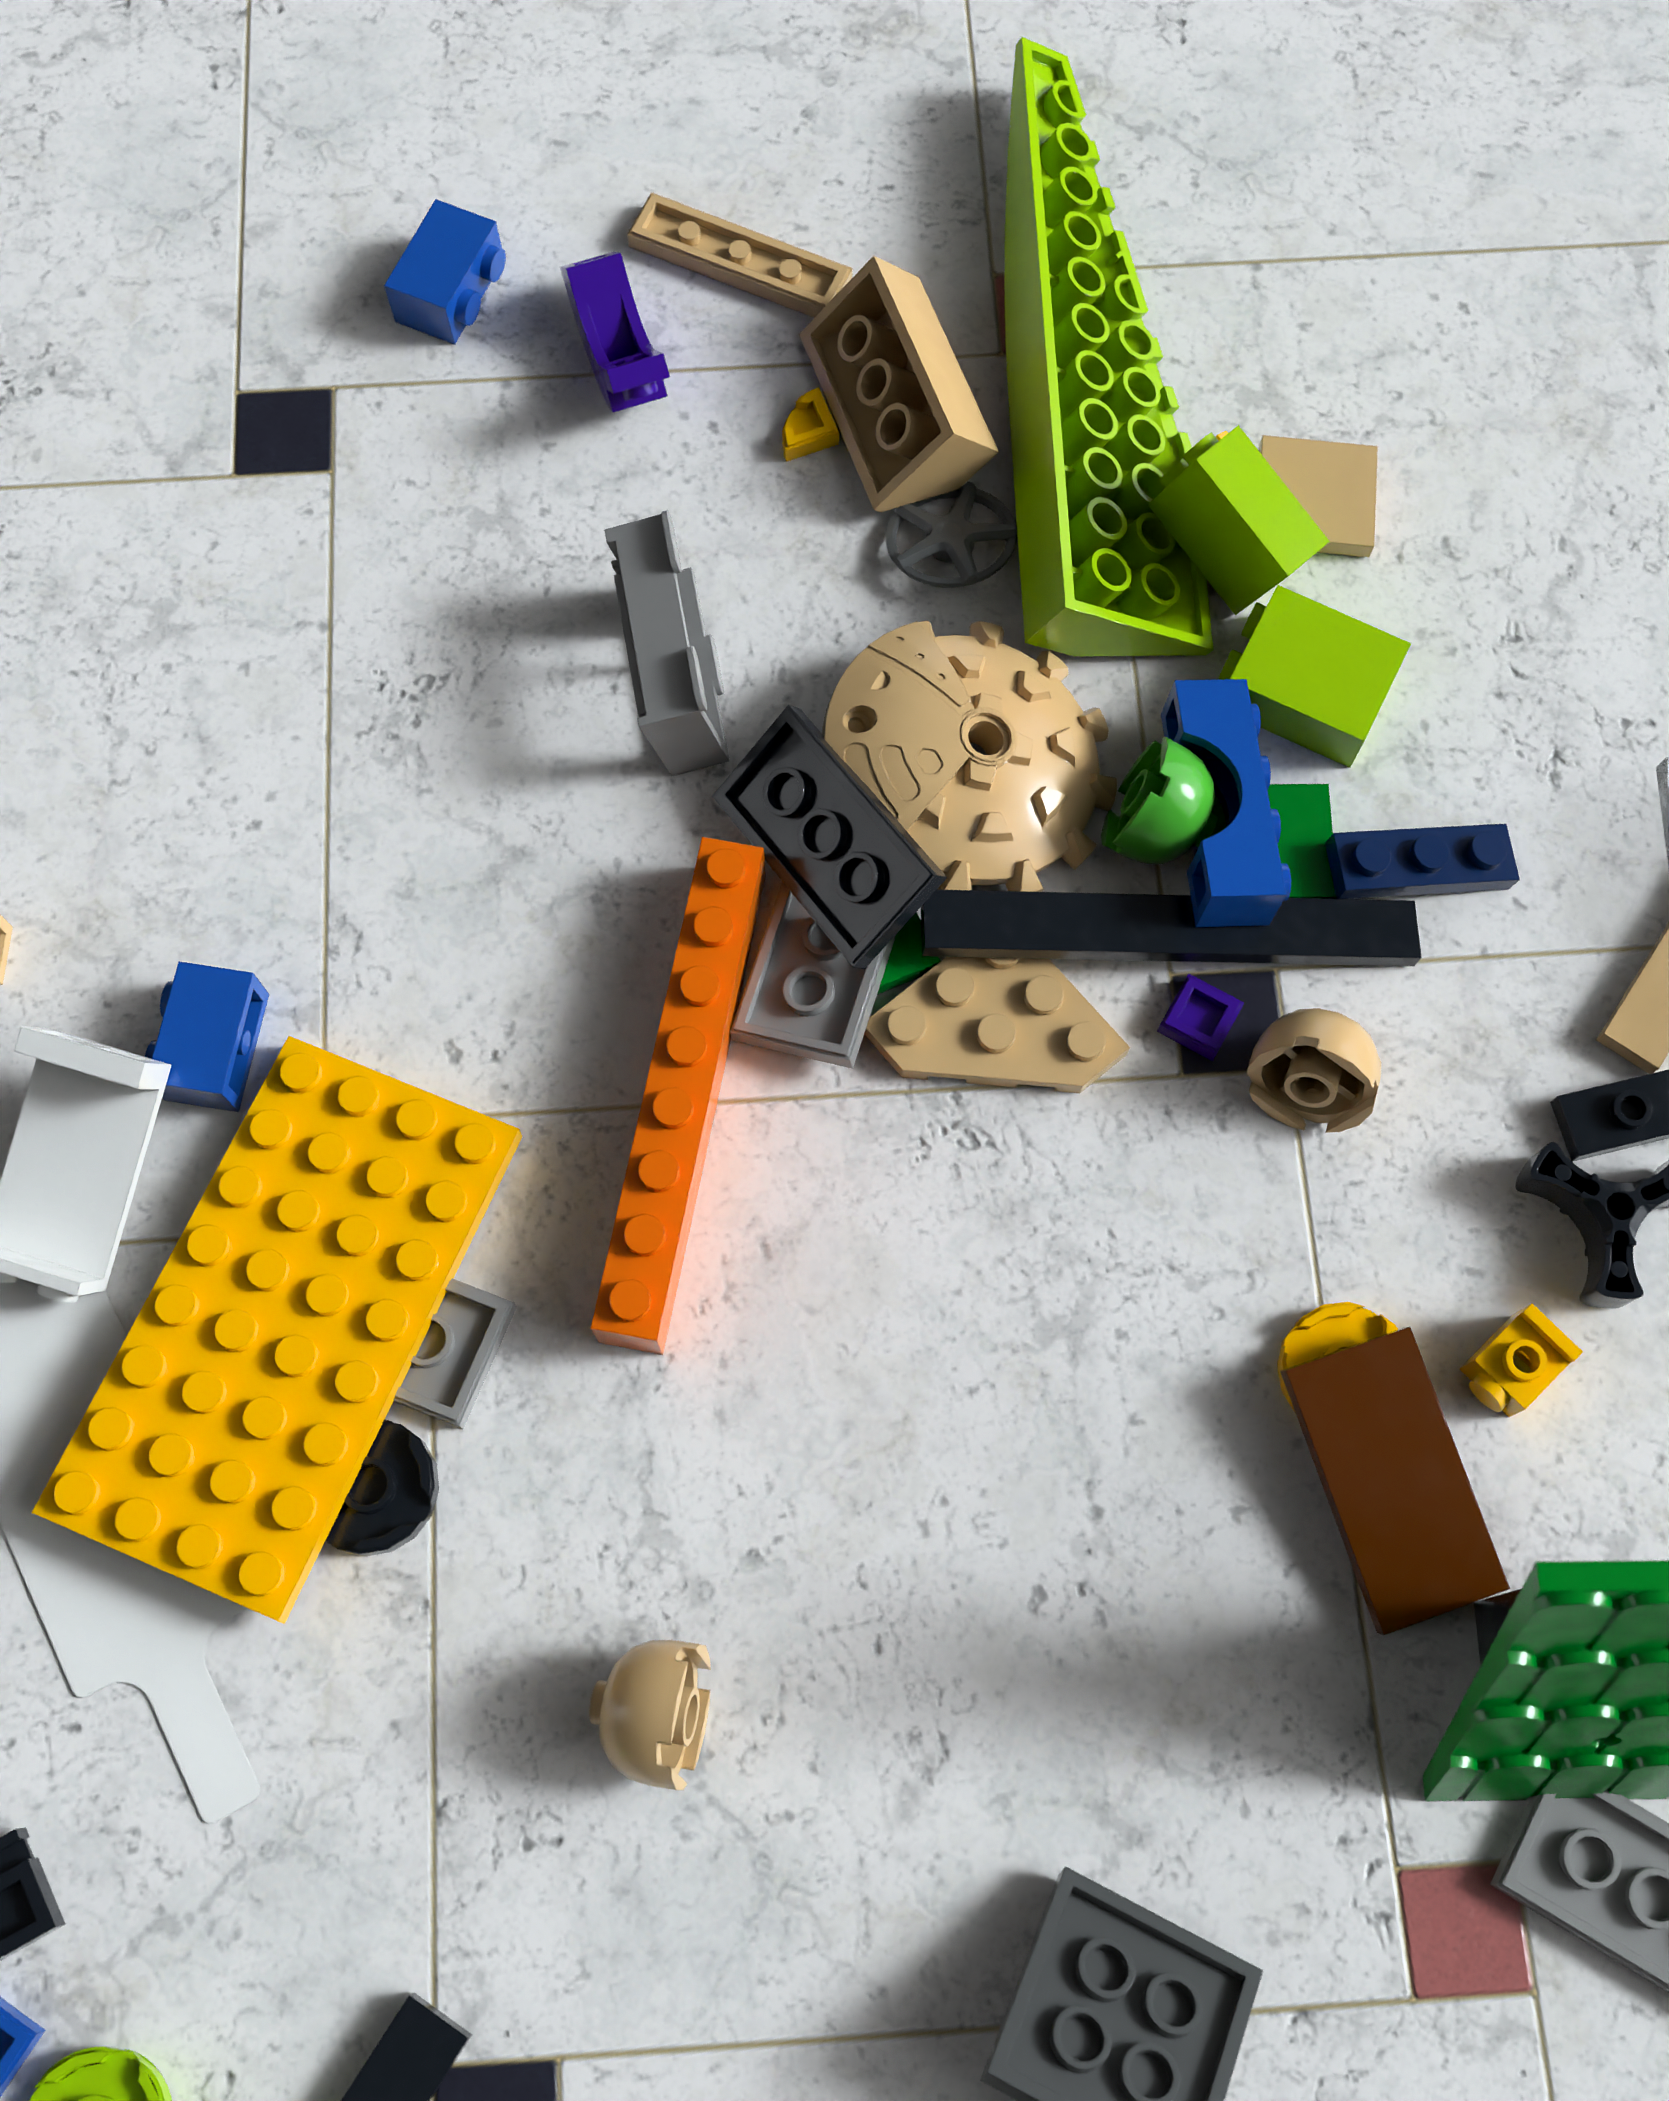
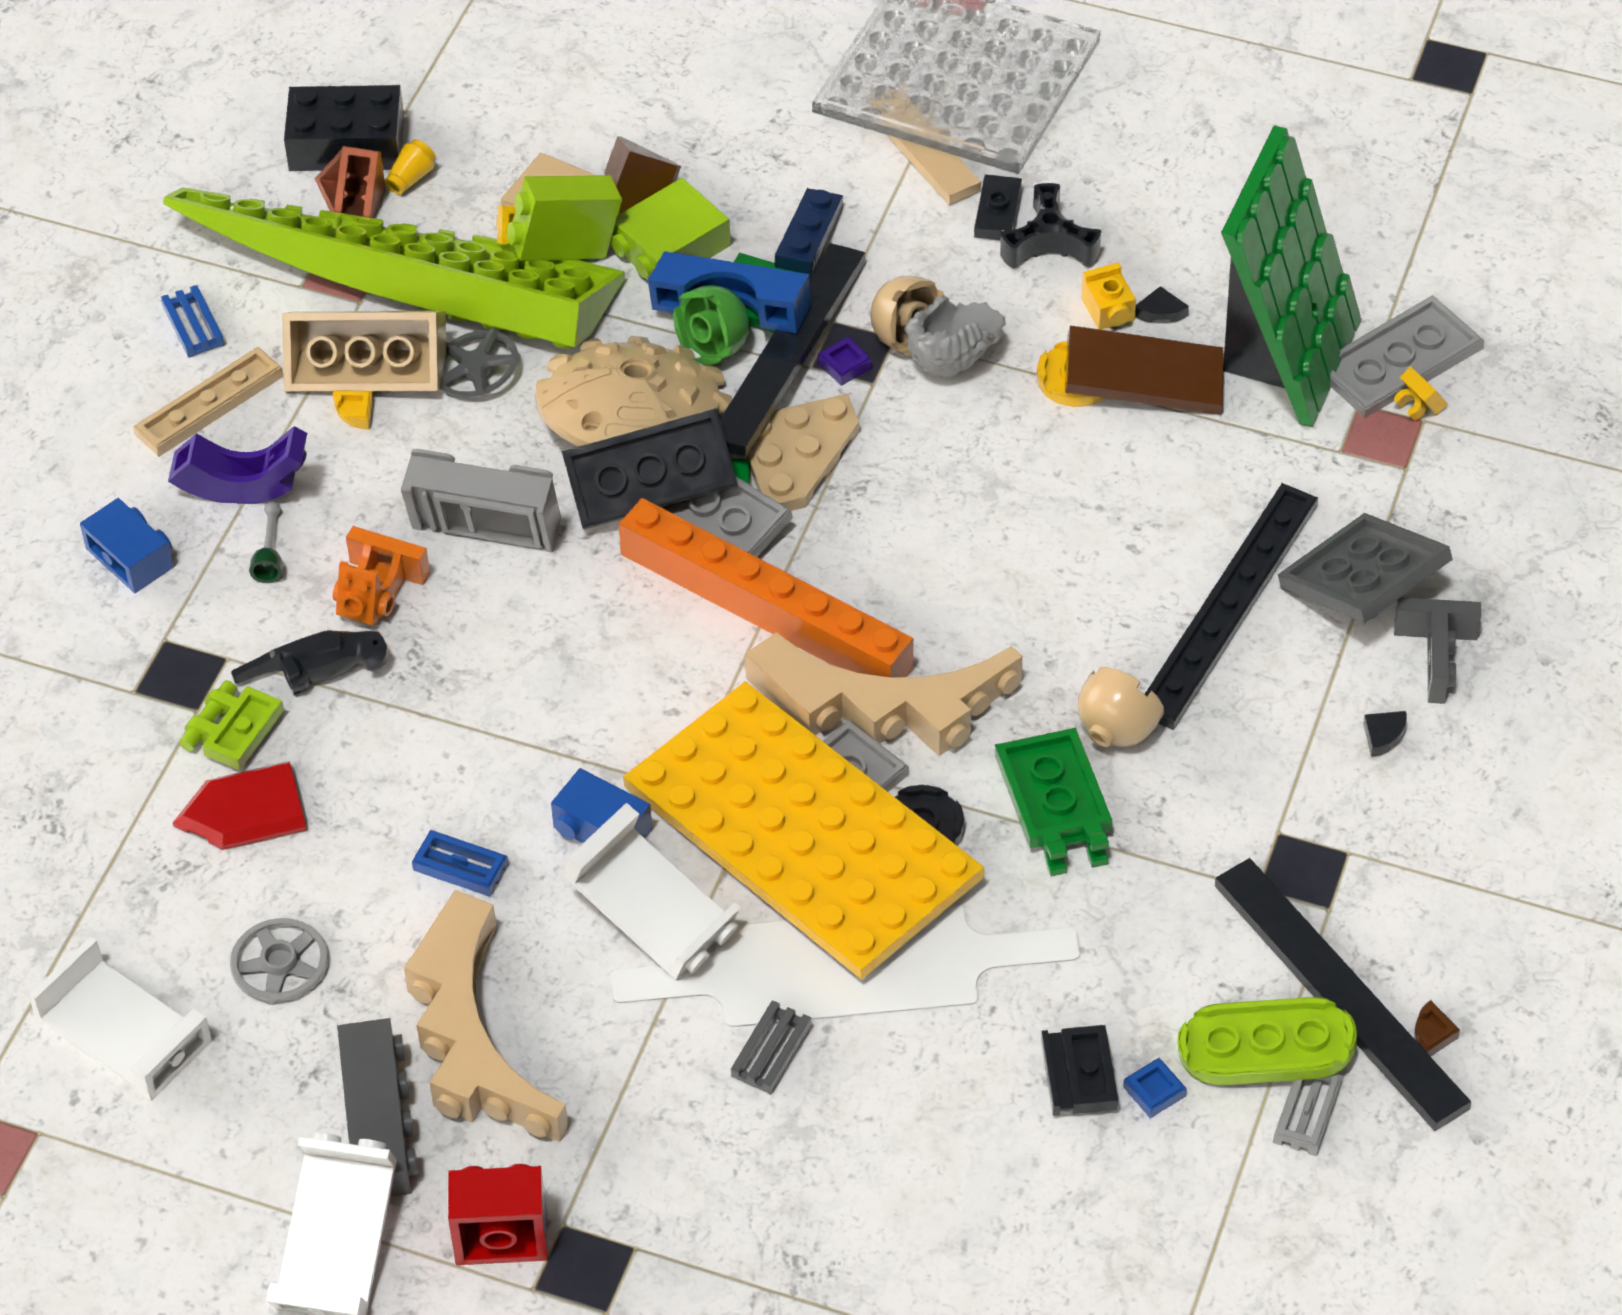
camera: 65 degrees left, 20 degrees down
(92, 598) = (244, 807): none -> red tile
(110, 893) = (456, 868): none -> blue tile
(207, 534) = (239, 731): none -> lime plate
(350, 574) = (318, 658): none -> black animal
(485, 1671) = (1056, 796): none -> green tile
(491, 439) = (266, 562): none -> dark green hinge
(545, 565) = (370, 589): none -> orange tile
(570, 1423) = (931, 706): none -> tan arch
(857, 172) = (184, 300): none -> blue tile
(984, 1802) = (1230, 601): none -> black tile
(1186, 256) = (353, 182): none -> copper slope
(1259, 301) = (411, 165): none -> yellow cone
(1282, 191) = (338, 116): none -> black brick
(1305, 1155) = (951, 337): none -> light grey piece
(1397, 588) = (638, 172): none -> reddish brown slope
(1550, 1451) = (1161, 306): none -> black tile
(1579, 1978) = (1421, 392): none -> yellow tile

